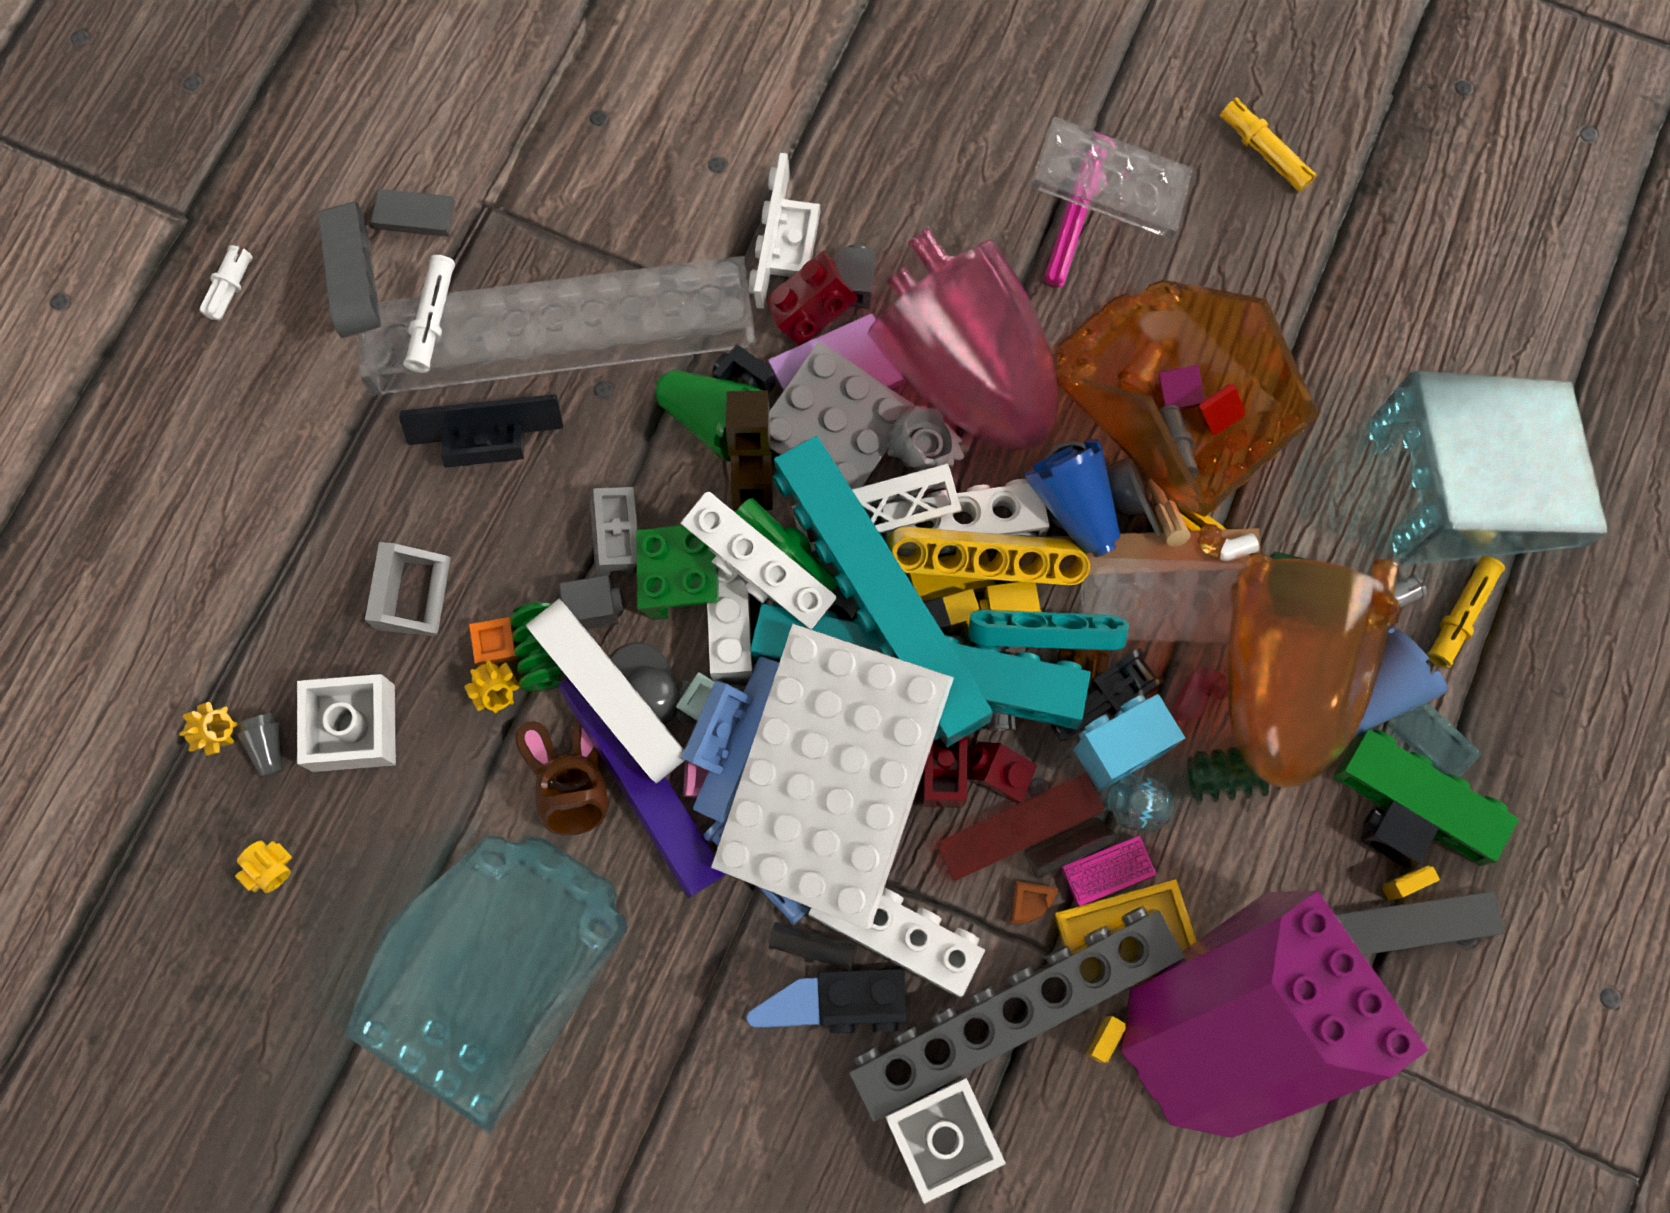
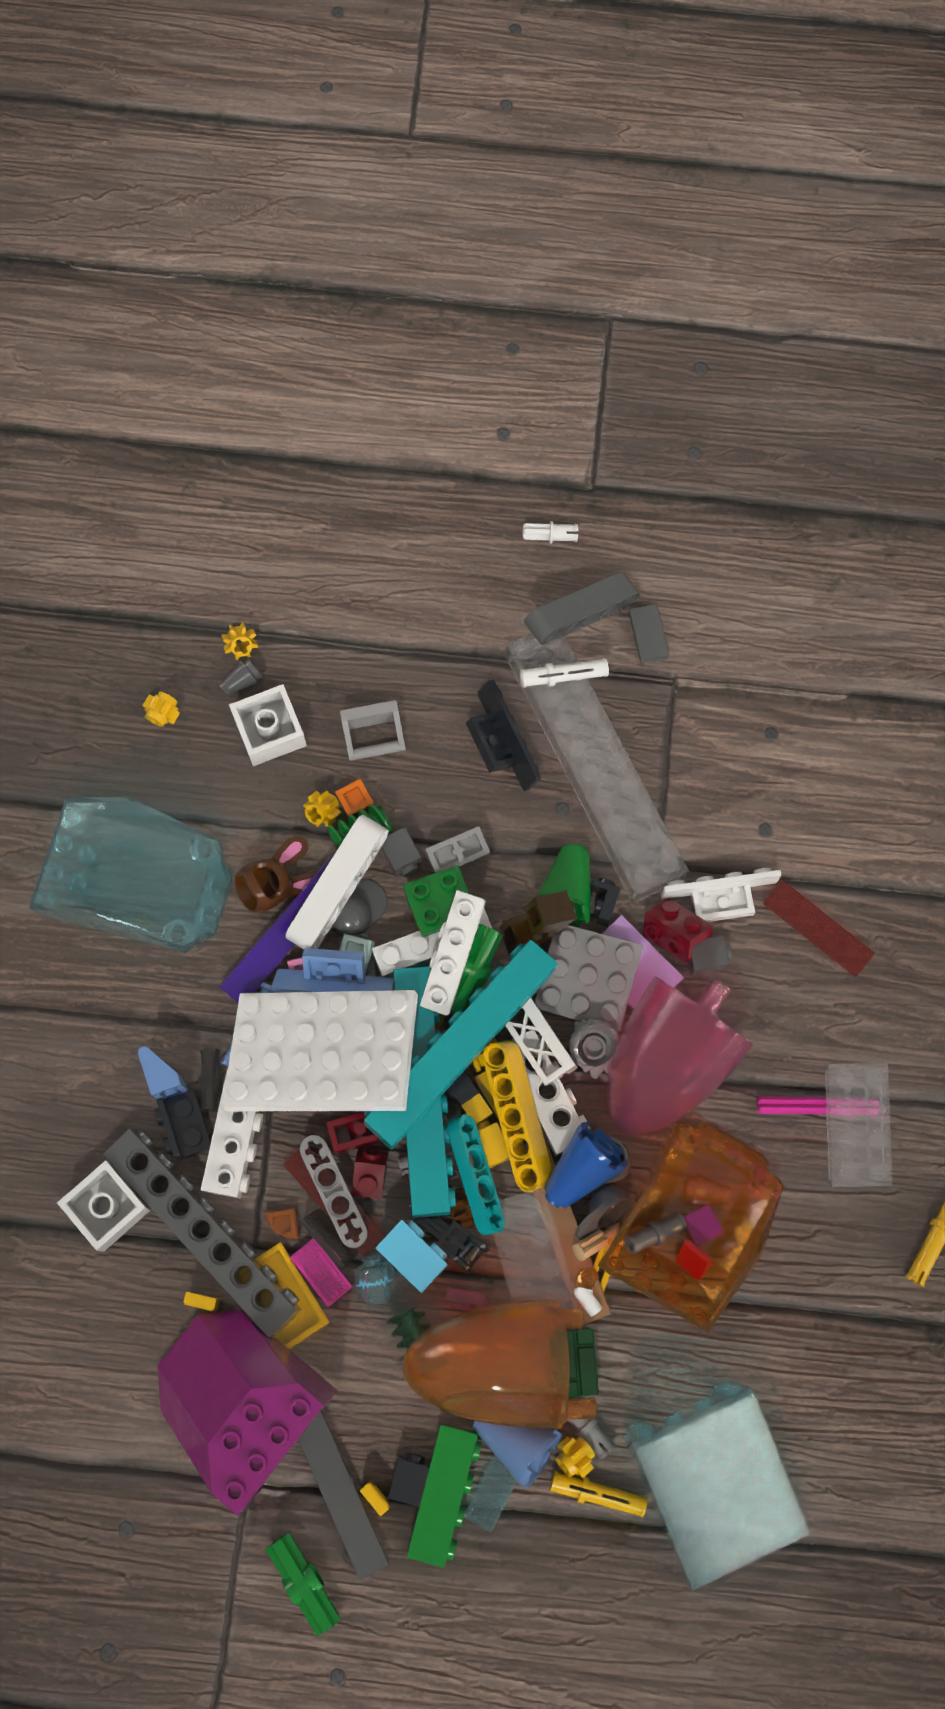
camera: 70 degrees right, 0 degrees up
(860, 145) = (818, 928): none -> clear red tile
(1011, 815) = (329, 1193): none -> light grey beam
(1421, 621) = (575, 1457): none -> yellow gear
(1494, 1007) = (303, 1584): none -> green piece

